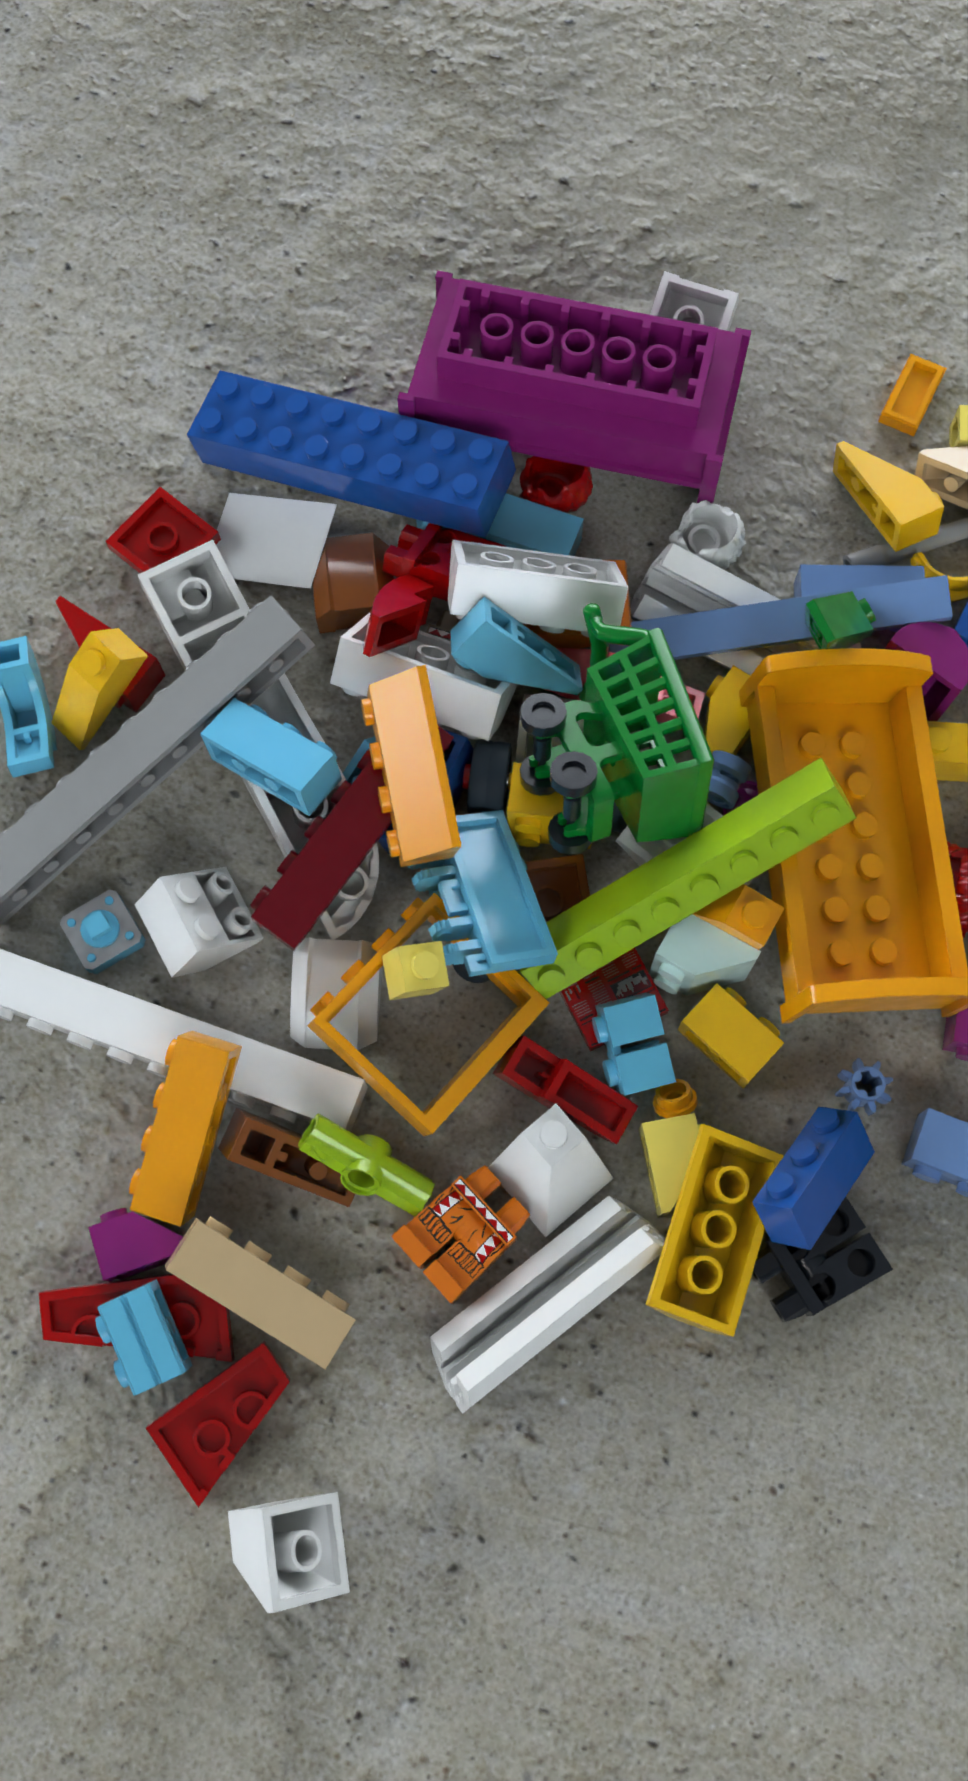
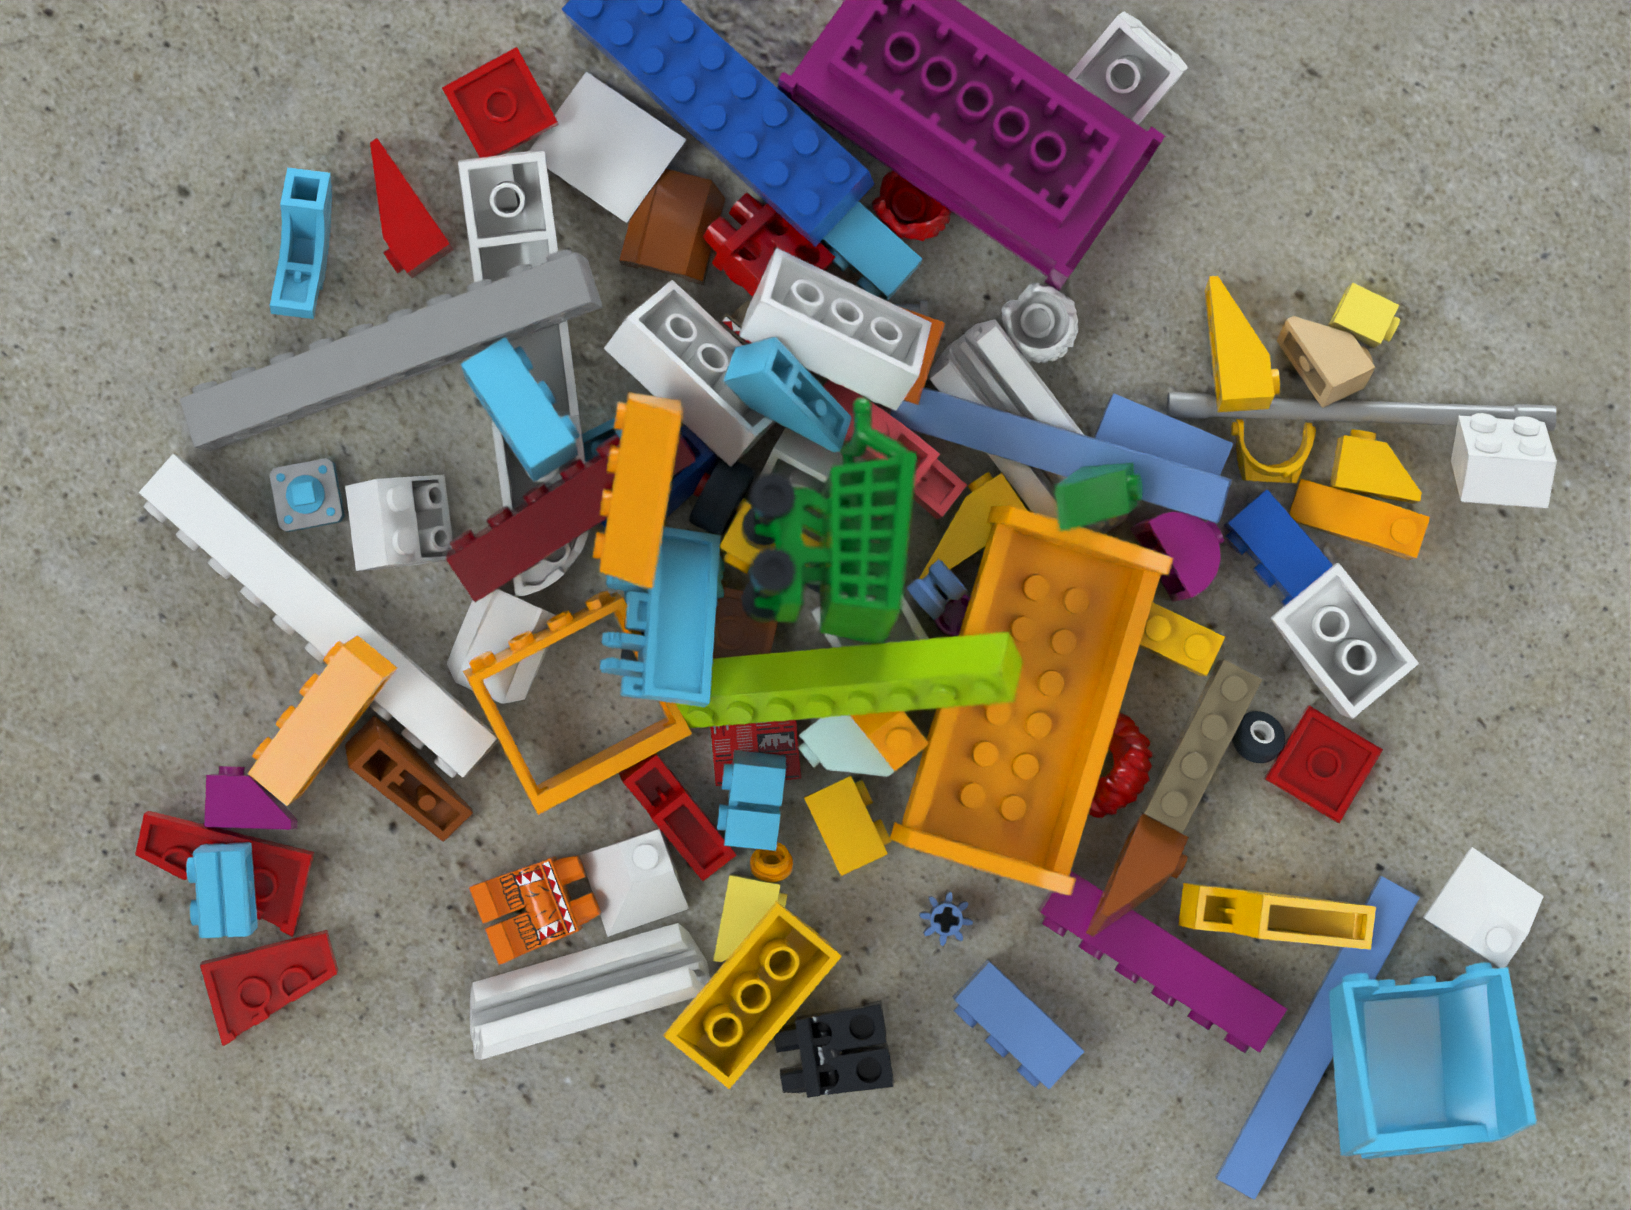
camera: 20 degrees right, 15 degrees up
(95, 683) = (382, 253): yellow slope -> none
(261, 1293) = (337, 889): tan brick -> none
(291, 1550) = (289, 1111): white slope -> none
(366, 1165) = (470, 815): lime piece -> none
(397, 614) = (693, 306): red slope -> none
(415, 970) = (575, 670): light yellow brick -> none
(813, 1177) = (858, 983): blue brick -> none
(912, 395) = (1323, 239): light orange tile -> none

